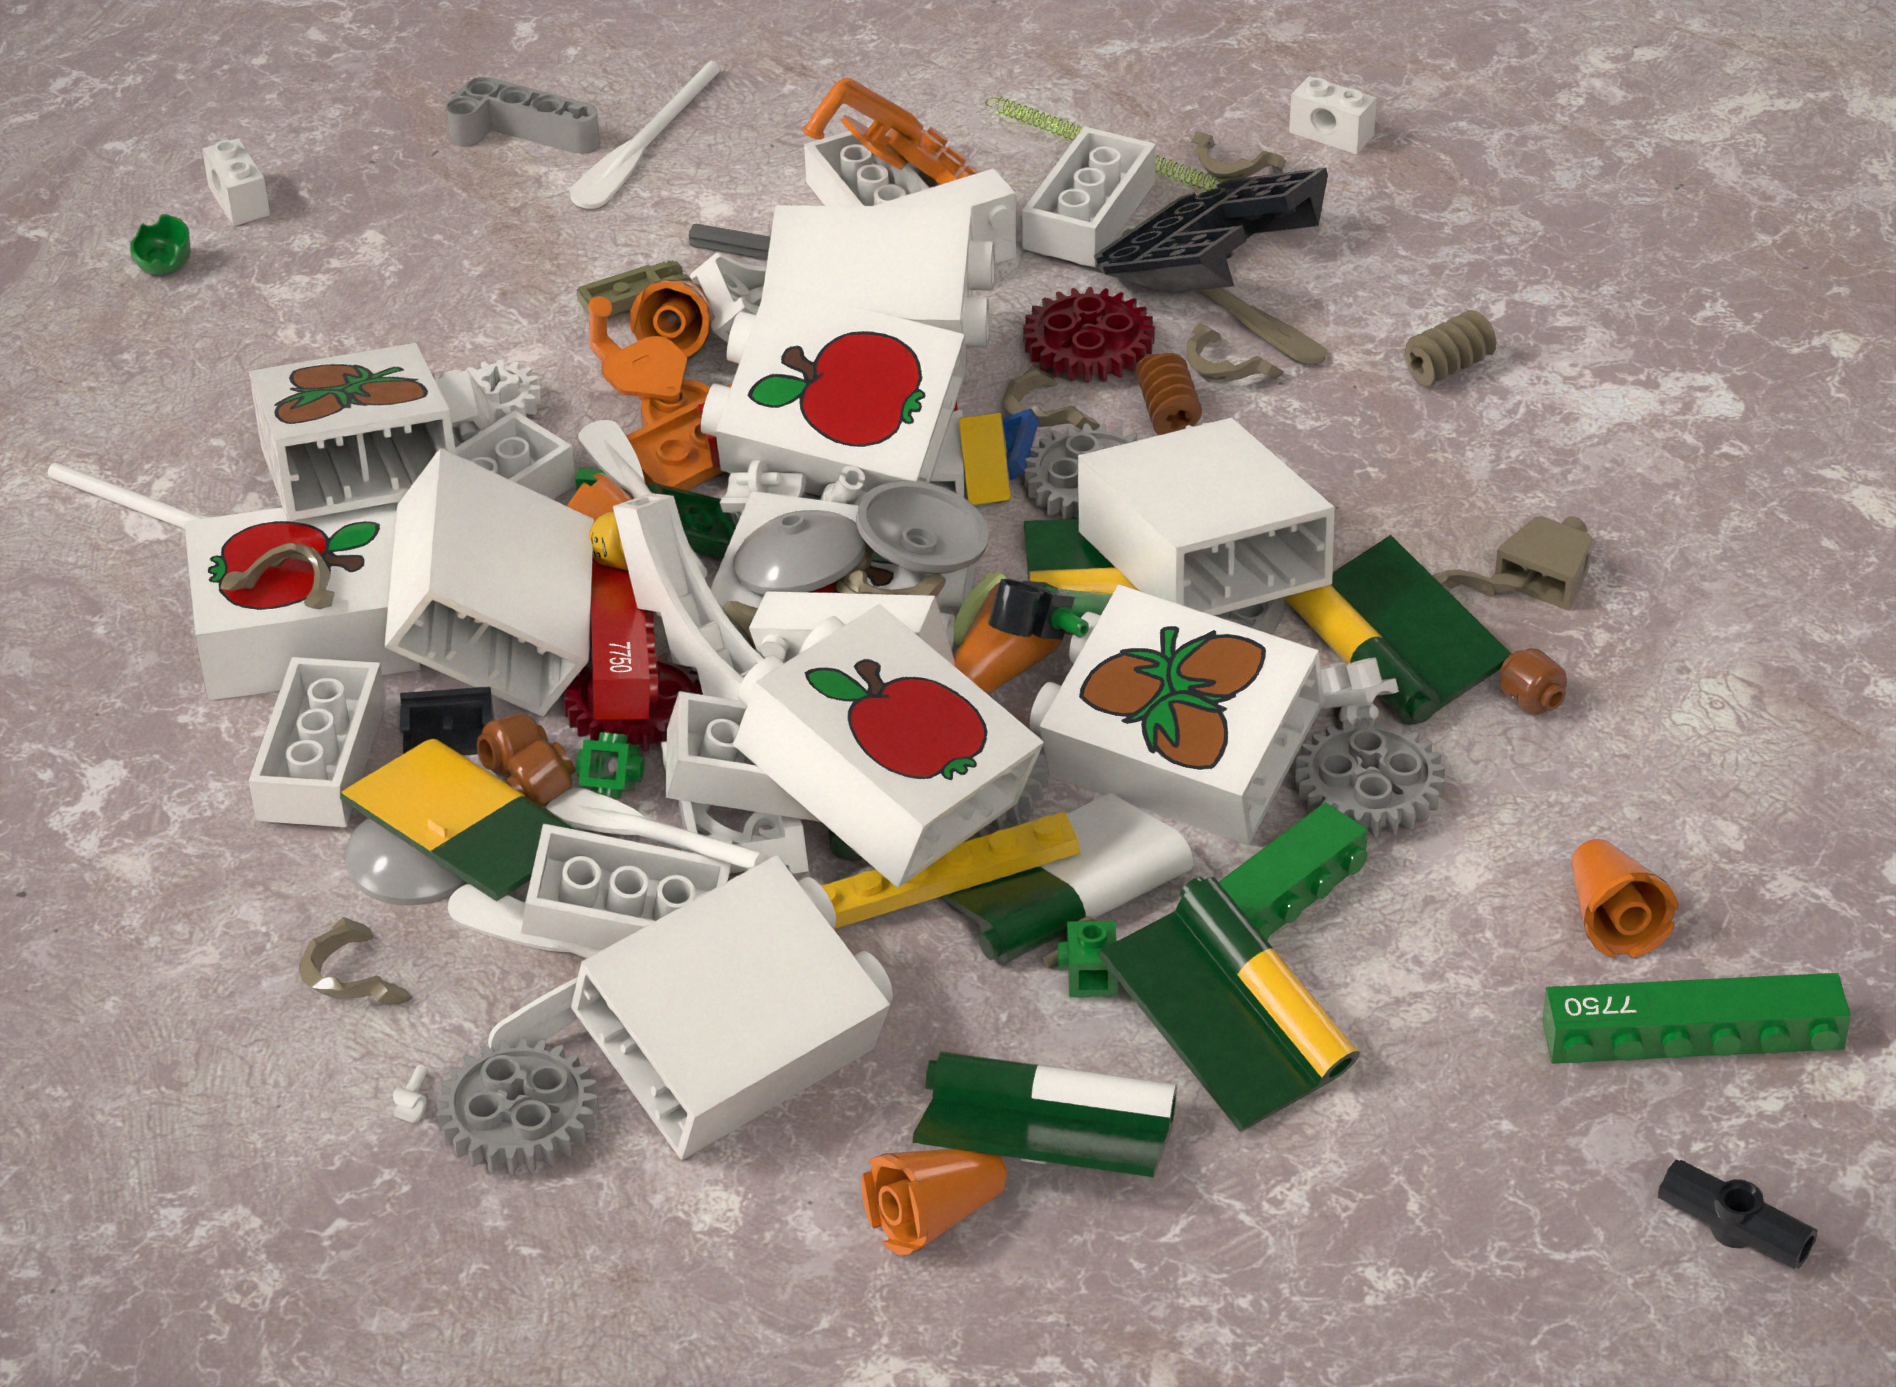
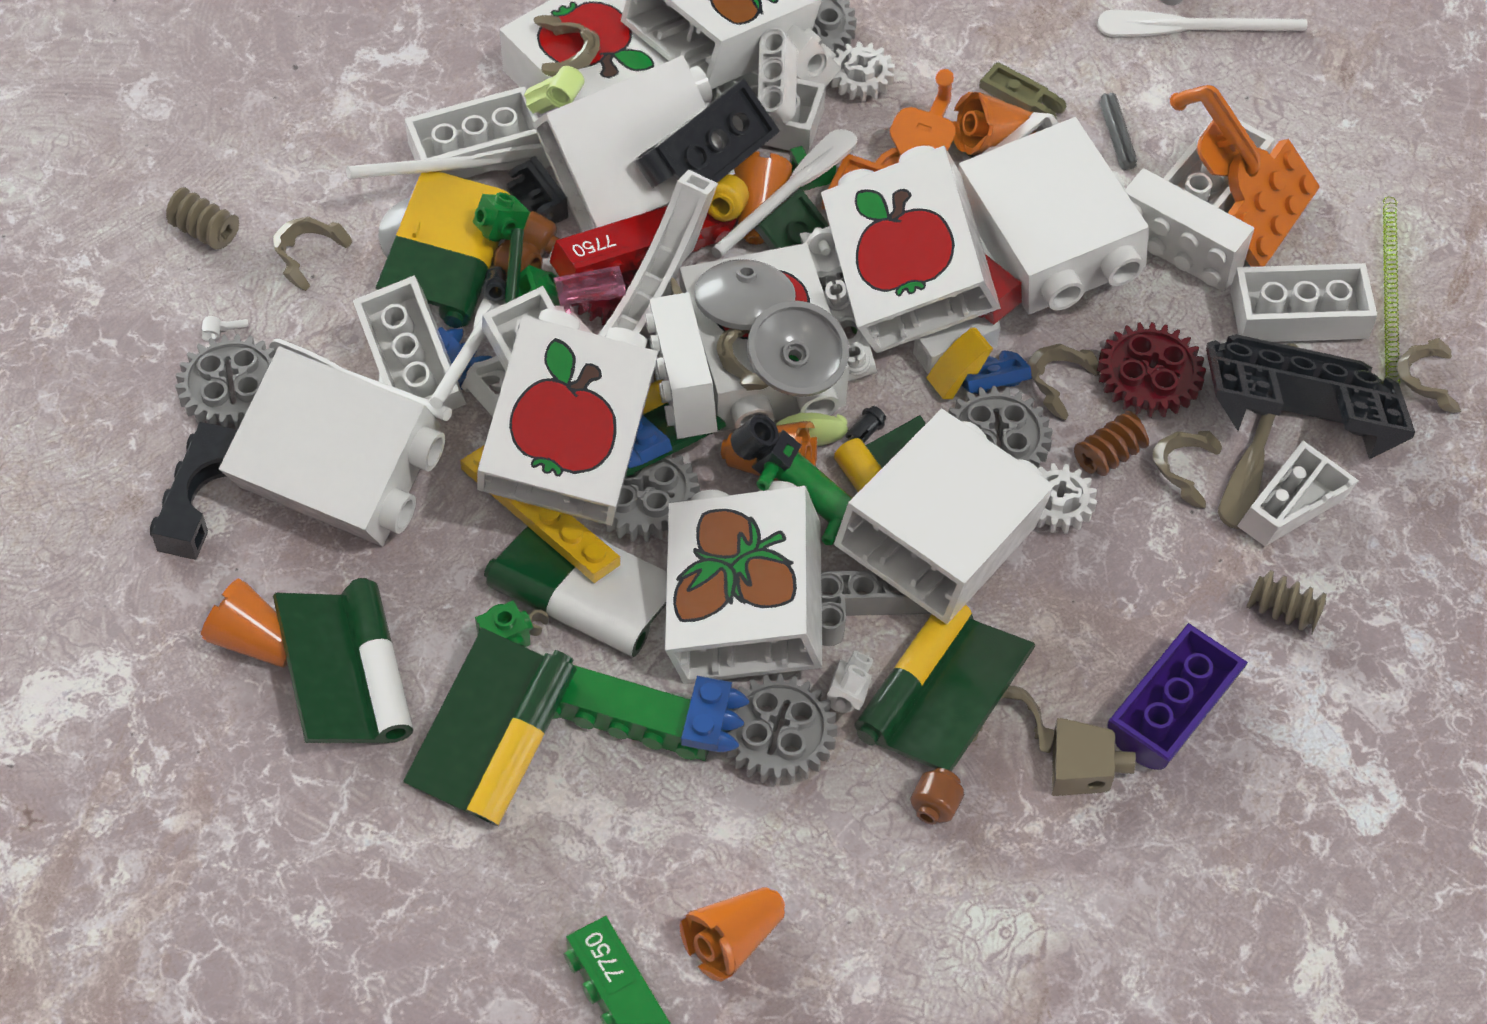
camera: 60 degrees right, 15 degrees up
(221, 1048) = (201, 219): none -> dark tan piece
(358, 601) = (555, 91): none -> yellowish green piece
(379, 725) = (491, 160): none -> white piece
(499, 730) = (499, 215): none -> green brick
(503, 439) = (776, 62): none -> white beam
(562, 505) = (692, 145): none -> black hinge
(576, 796) = (495, 284): none -> black pin
(596, 773) = (514, 264): none -> dark green bar
(681, 670) = (588, 286): none -> clear pink plate
(713, 1223) = (180, 526): none -> black arch
(1002, 560) = (871, 420): none -> black pin
(1323, 291) = (1297, 494): none -> white wedge
(1334, 808) = (710, 715): none -> blue plate
(1522, 459) = (1174, 697): none -> dark purple brick

